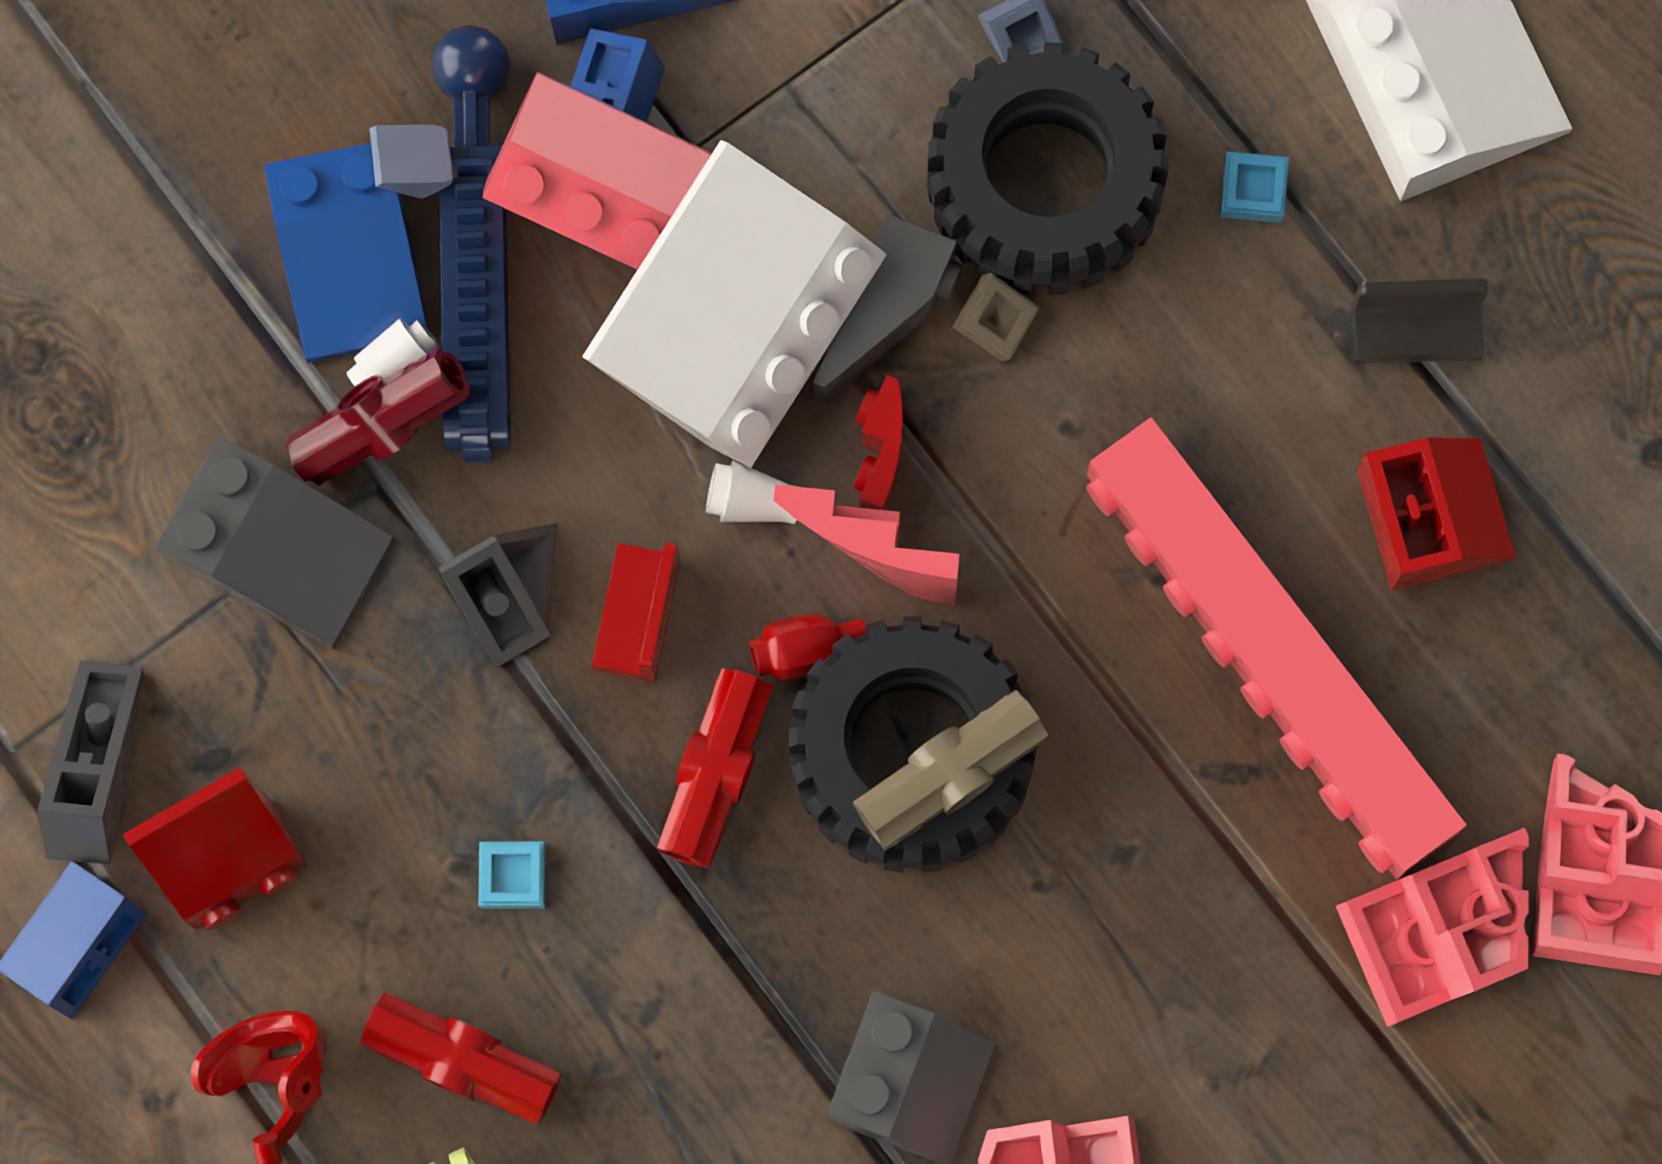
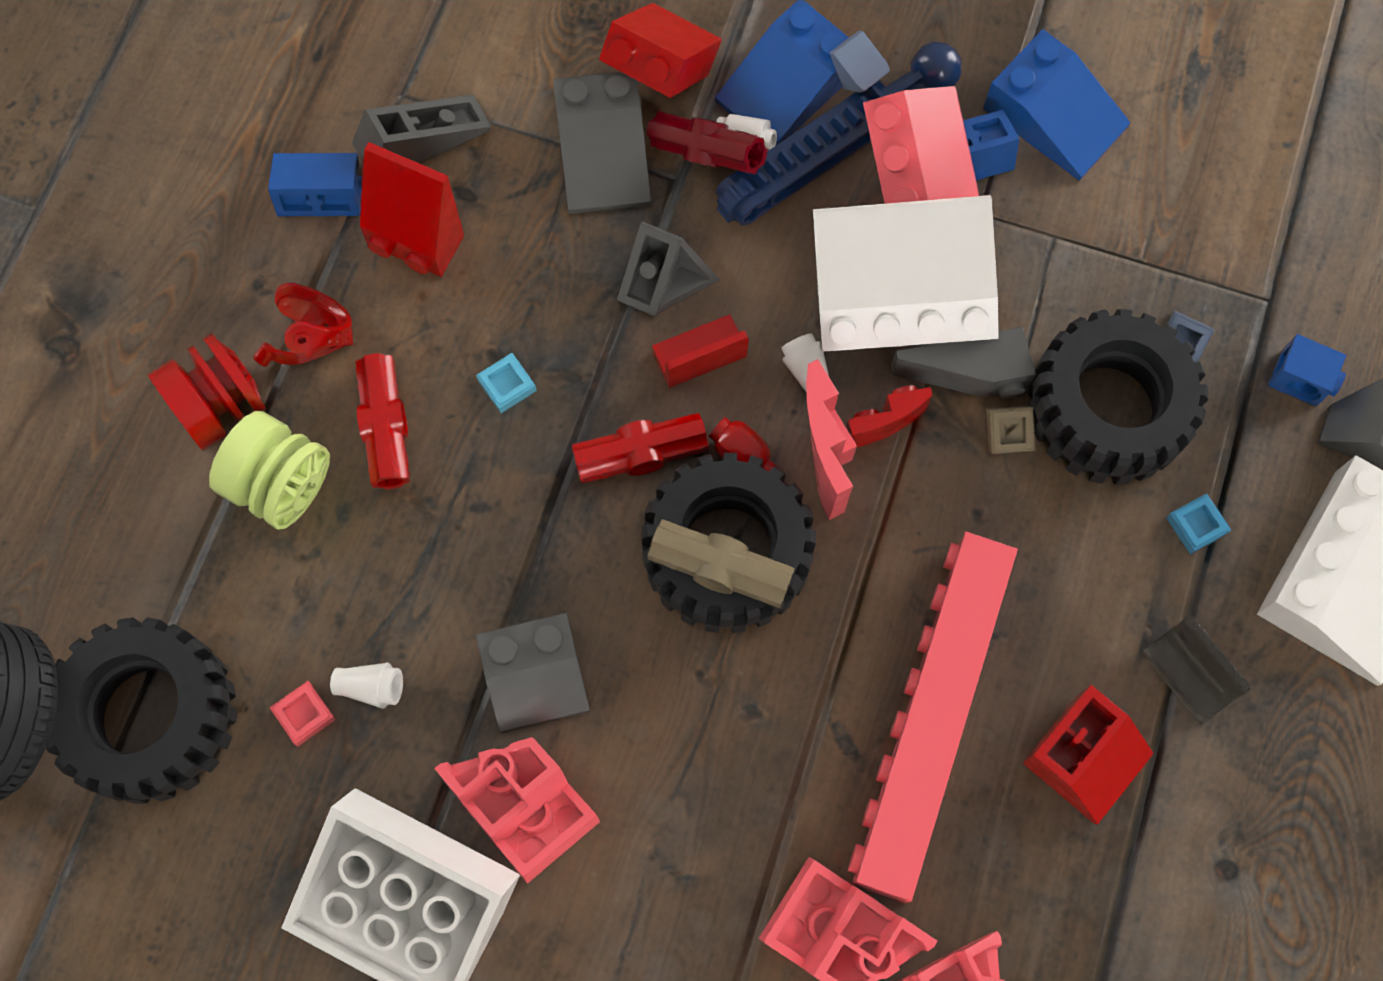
camera: 50 degrees right, 5 degrees down
(209, 385) = (660, 49): none -> red brick

